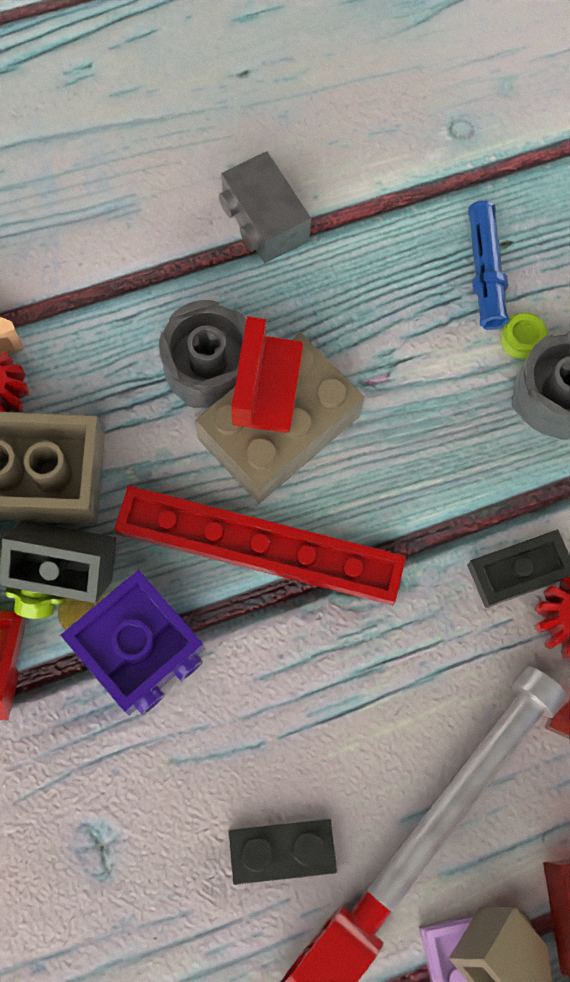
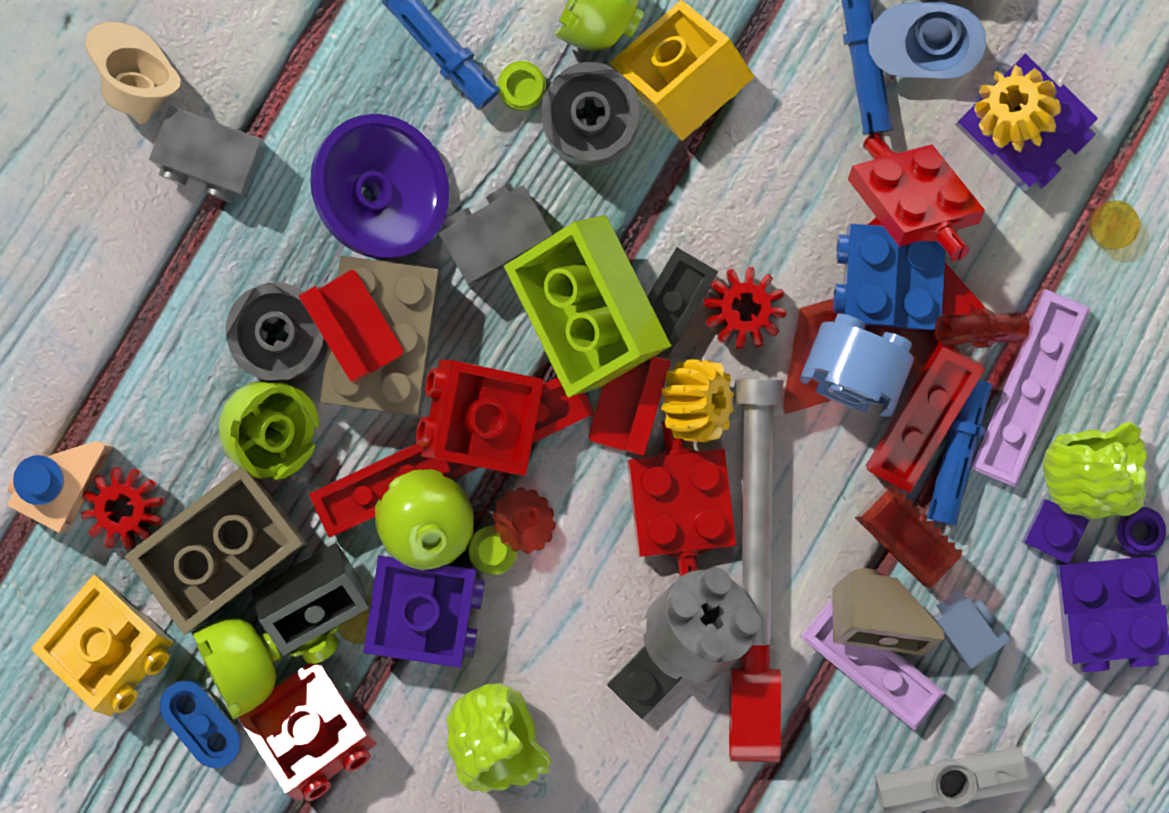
camera: 30 degrees left, 15 degrees up
(99, 797) = (494, 740): none -> lime hair
(140, 412) = (268, 429): none -> lime cylinder
(197, 574) = (424, 519): none -> lime cylinder
(229, 644) = (489, 553): none -> lime plate
(258, 119) = (131, 69): none -> tan piece
(272, 640) = (524, 520): none -> clear red piece
(306, 528) = (480, 416): none -> red plate
(348, 845) = (700, 626): none -> flat silver brick
(385, 307) = (398, 170): none -> dark purple dish
(407, 731) = (681, 502): none -> red plate
(425, 415) = (494, 234): none -> flat silver brick
(428, 618) = (629, 407): none -> red panel
(458, 512) = (587, 305): none -> lime brick
(487, 656) = (697, 400): none -> yellow gear

